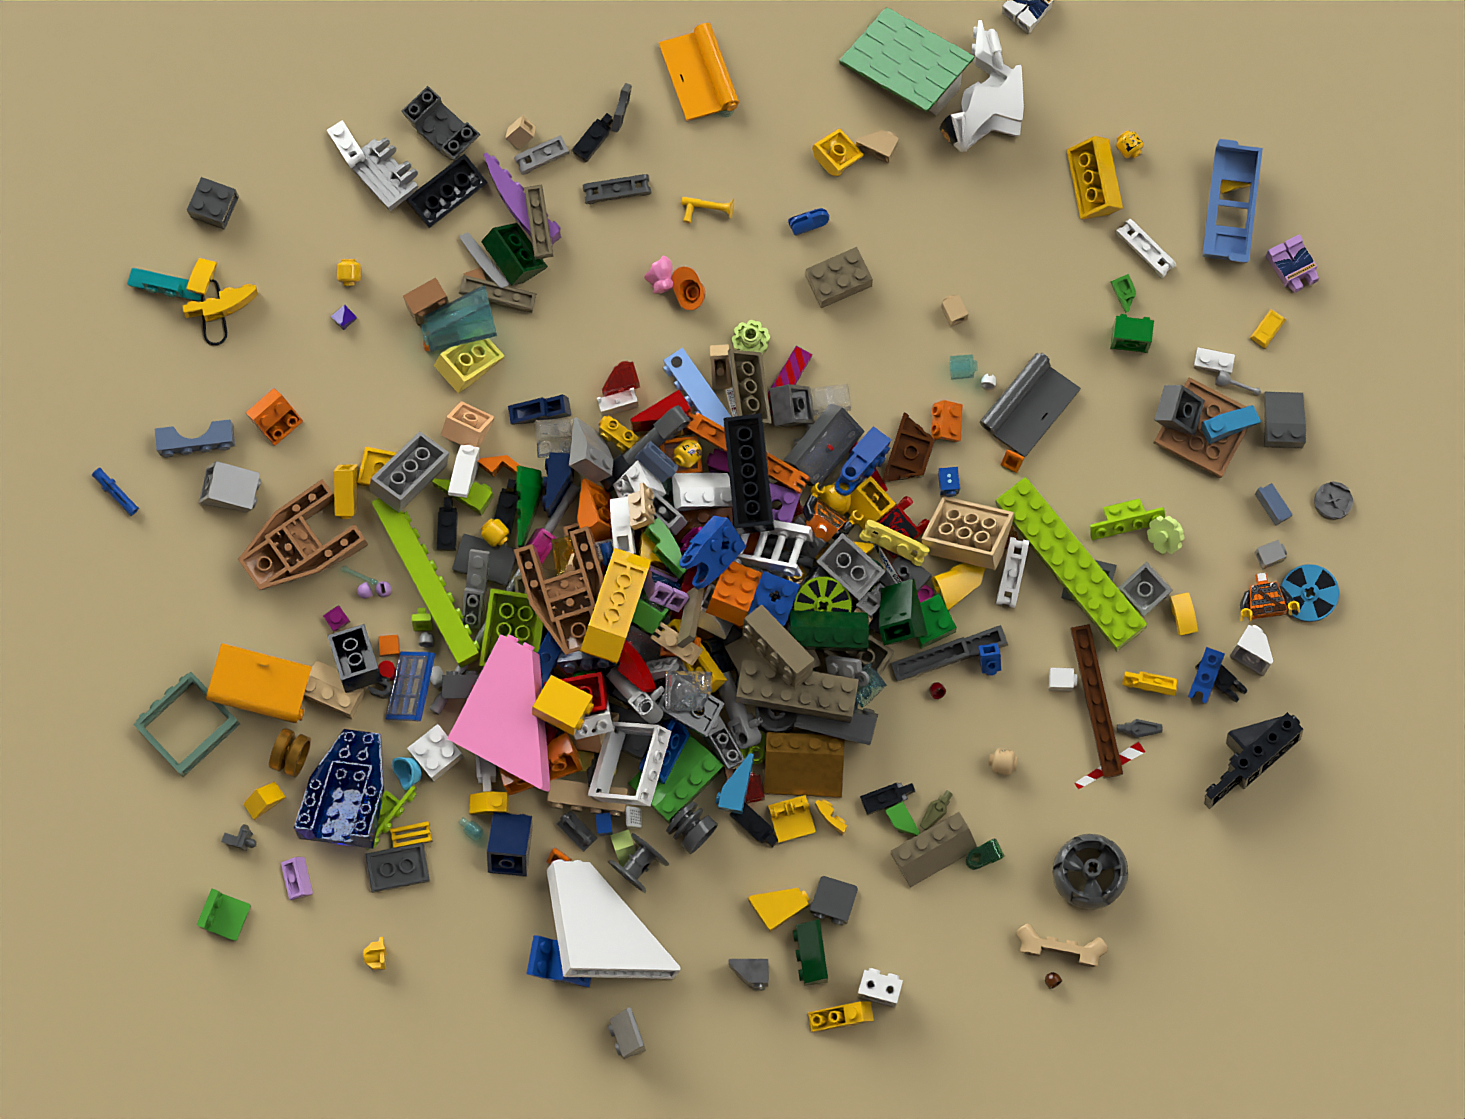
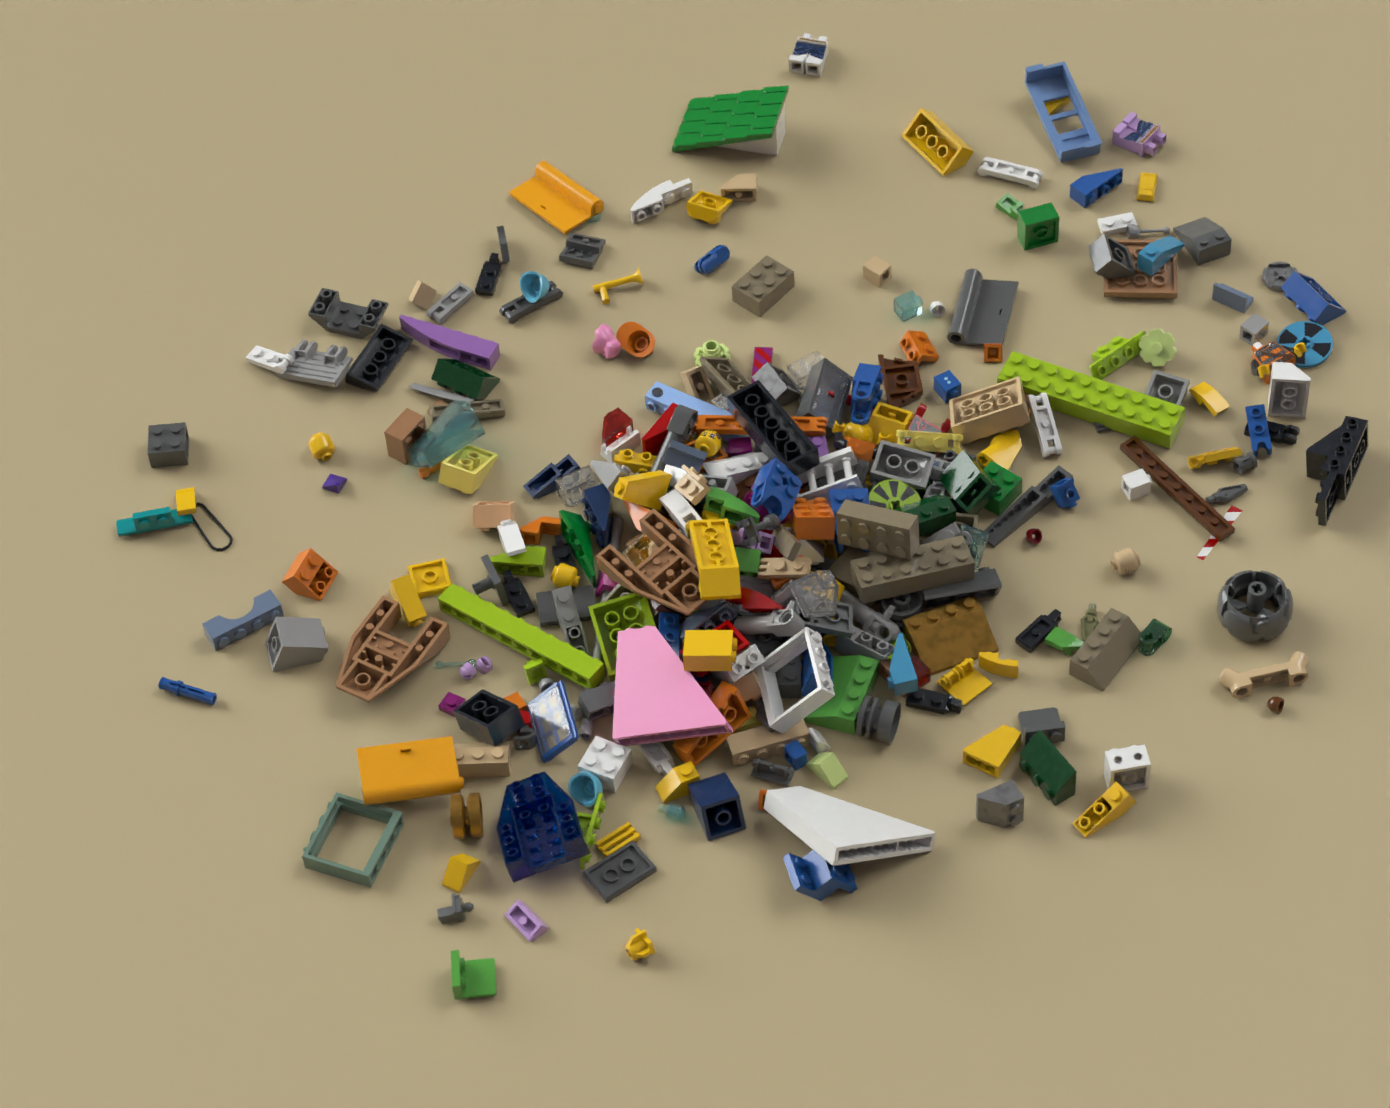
camera: 25 degrees left, 25 degrees down
(229, 302) = (219, 512): yellow slope -> none
(409, 471) = (460, 559): light grey brick -> none
(428, 508) = (492, 581): none -> dark grey tile
(538, 222) = (476, 342): dark tan tile -> none
(602, 480) = (643, 488): none -> yellow slope
(623, 181) = (534, 286): none -> medium azure helmet
(626, 1033) = (918, 898): light grey slope -> none
(638, 862) = (843, 774): dark grey piece -> none
(661, 587) = (769, 522): none -> dark grey bar
(694, 147) = (582, 250): none -> dark grey slope
(787, 121) = (655, 199): none -> white slope
(991, 104) = (817, 111): white piece -> none
(1129, 144) = (952, 110): yellow head -> none
(1174, 700) = (1244, 463): none -> dark grey bush
(1212, 306) = (1093, 186): none -> blue slope
(1347, 544) = (1312, 298): none -> blue slope

